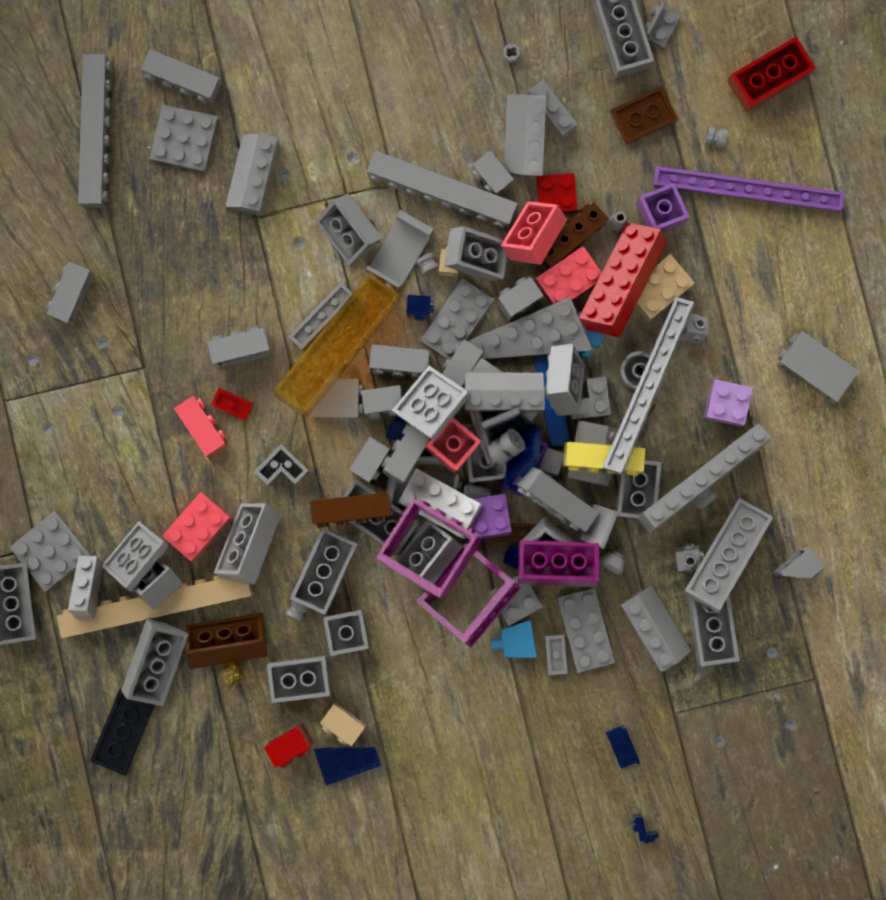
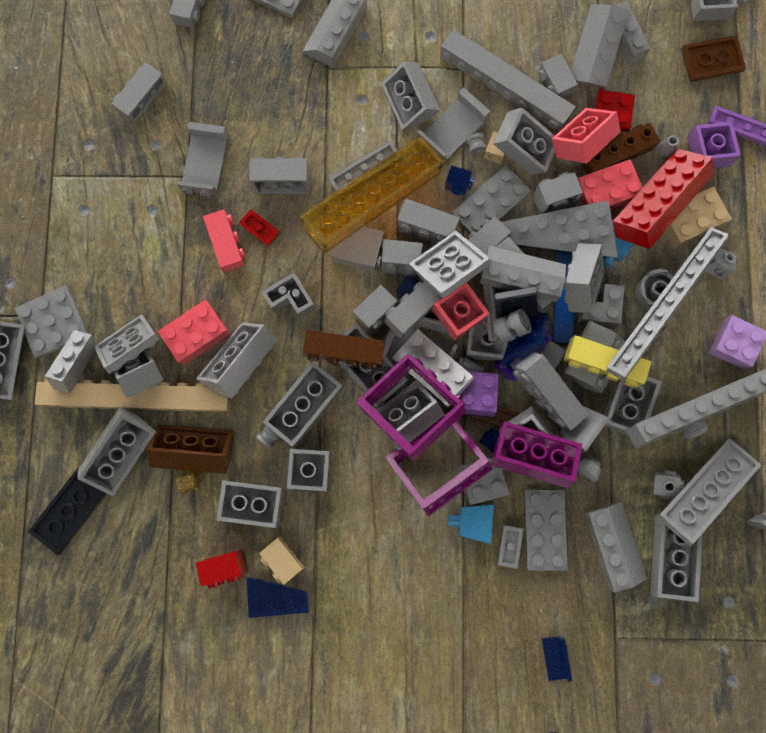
camera: 20 degrees right, 5 degrees down
(156, 348) = (204, 159): none -> light grey panel

